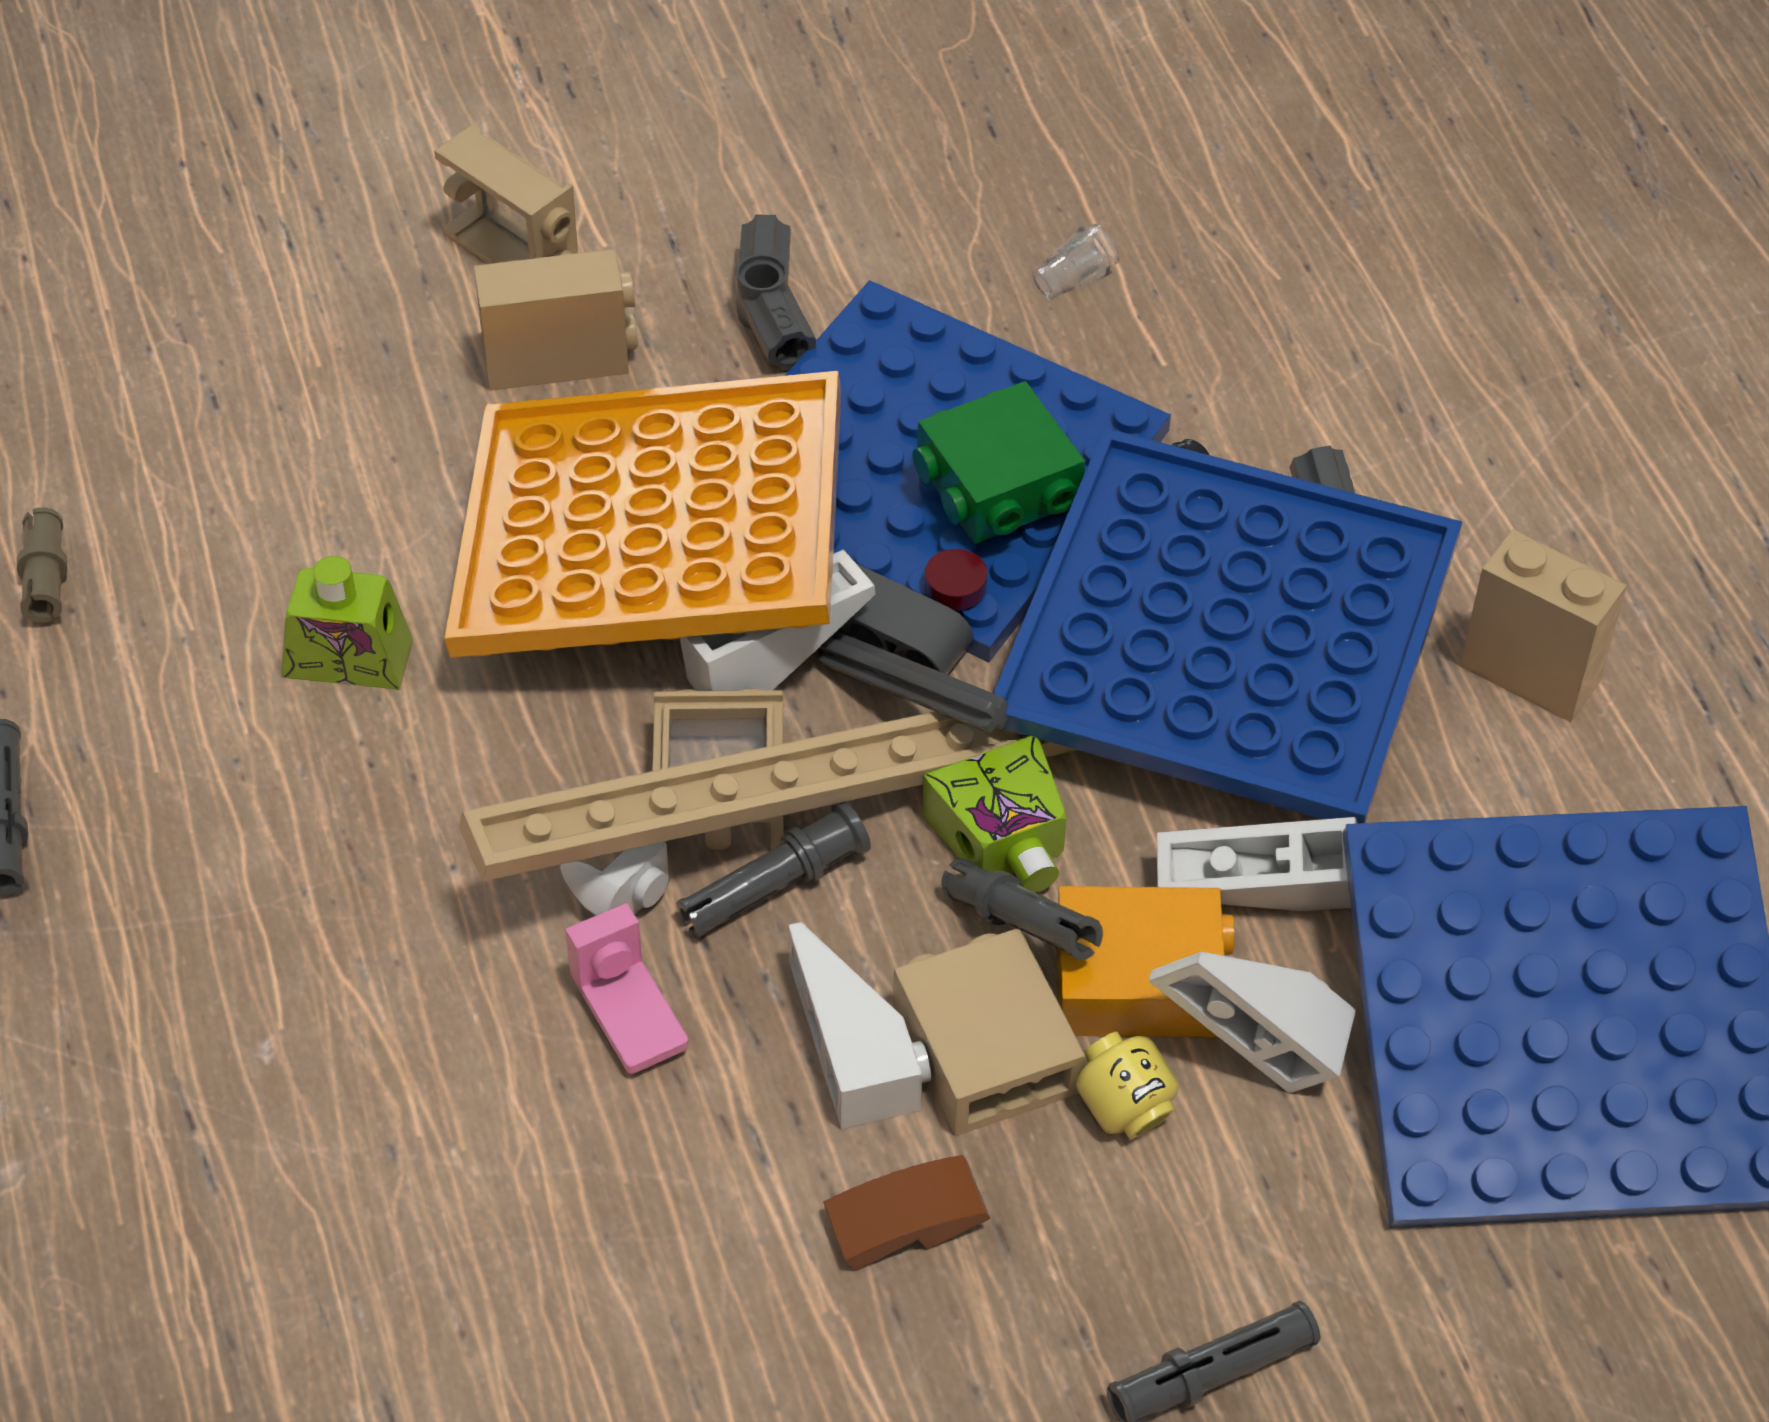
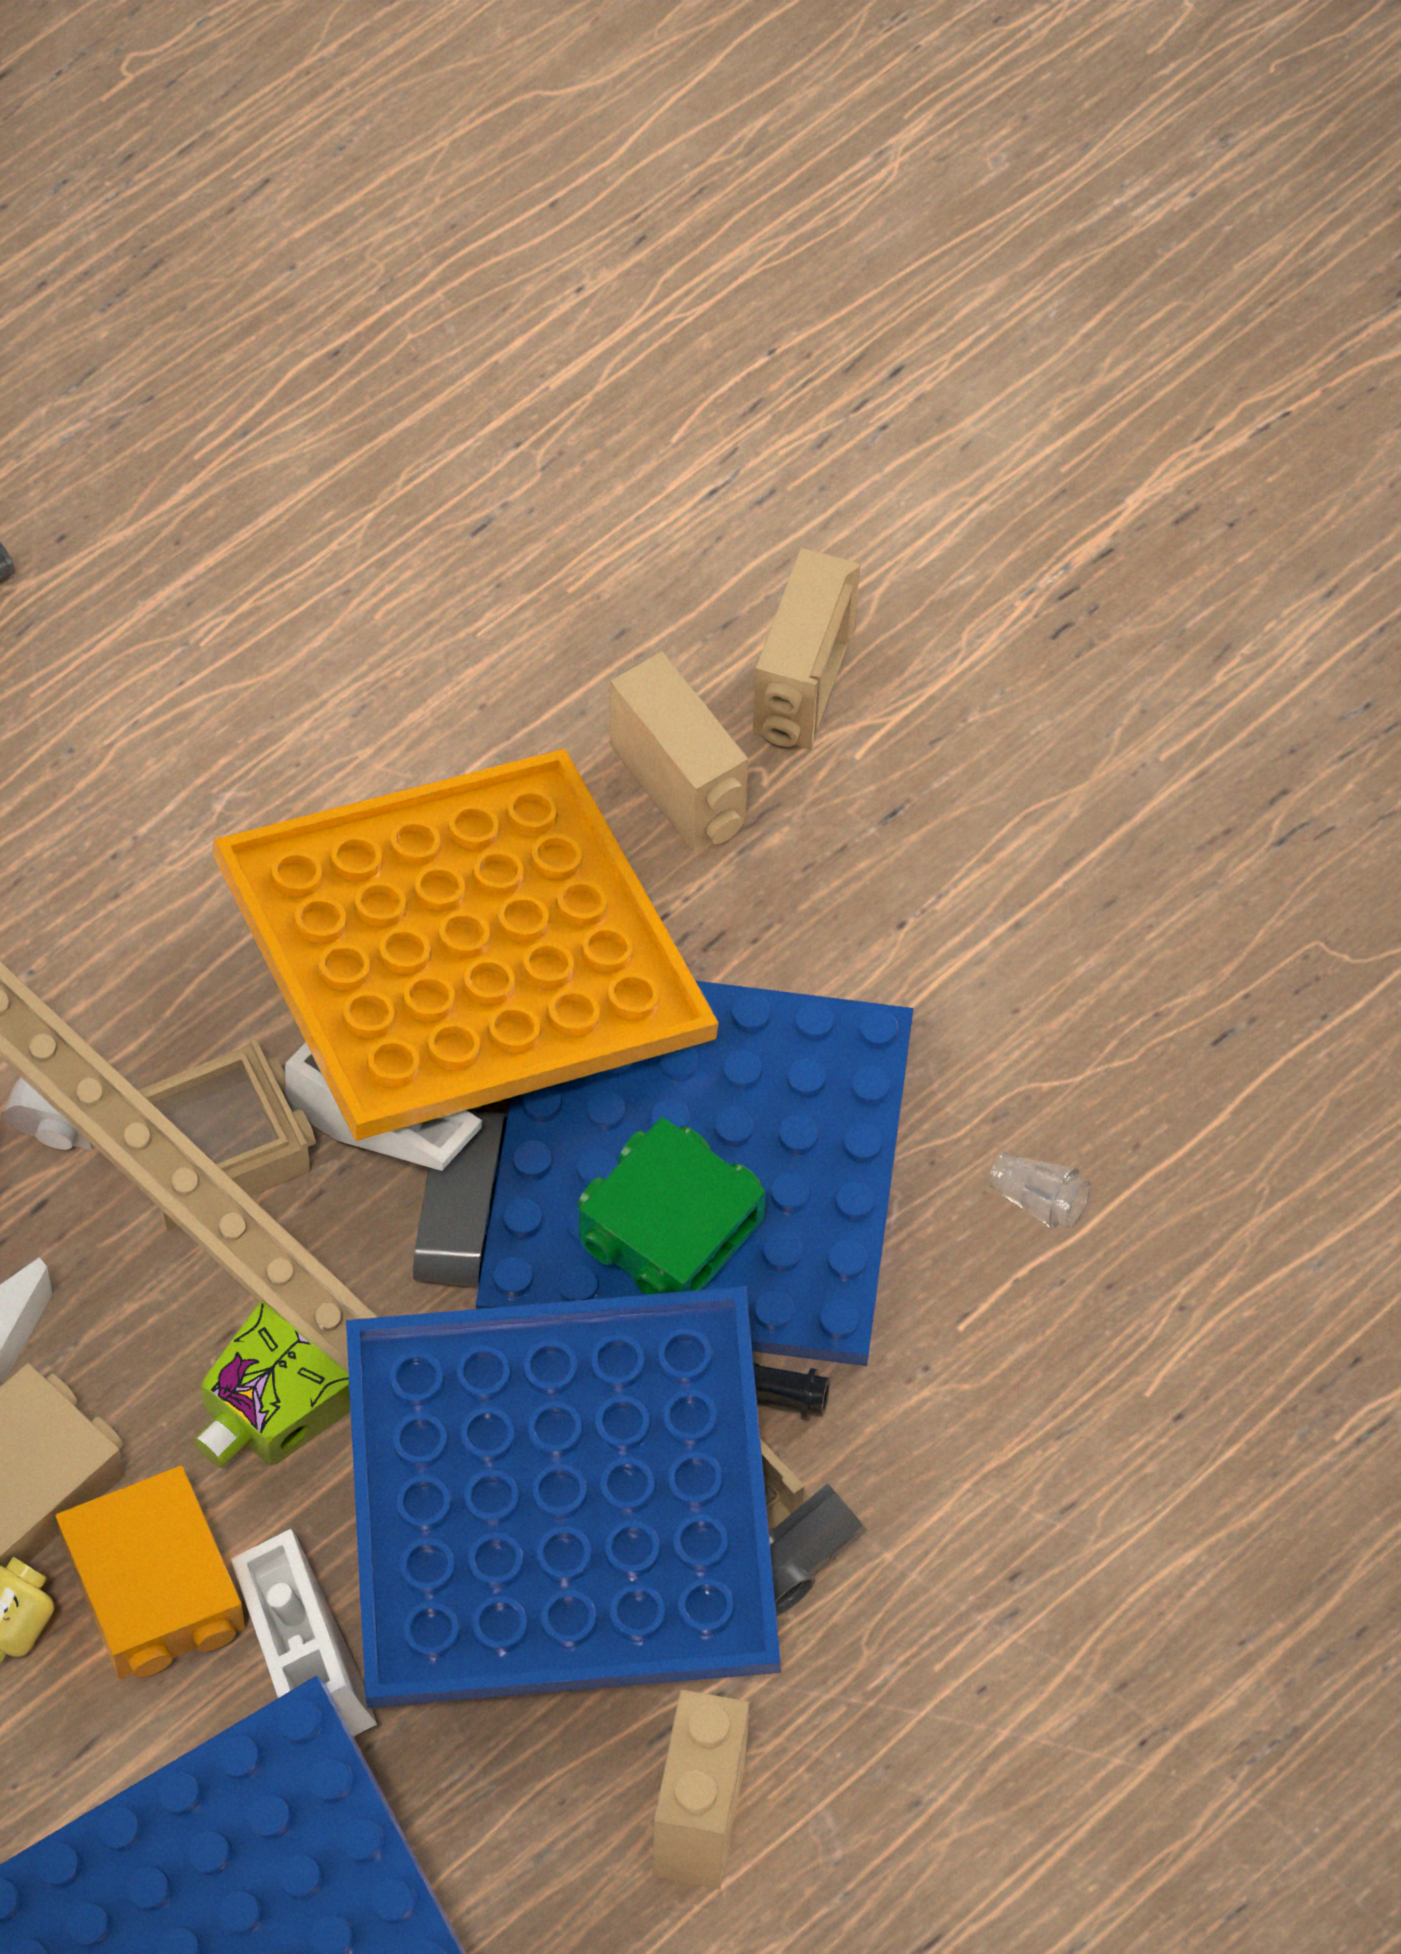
camera: 65 degrees right, 10 degrees up
(41, 565) = (201, 492): dark tan pin -> none
(345, 628) = (218, 746): lime torso -> none
(764, 294) = (815, 943): dark grey piece -> none
(800, 856) = (147, 1240): dark grey pin -> none
(914, 682) = (367, 1251): dark grey axle -> none
(956, 578) = (524, 1237): dark red tile -> none
(1004, 900) = (156, 1426): dark grey pin -> none
(1266, 1012) = (109, 1694): white slope -> none

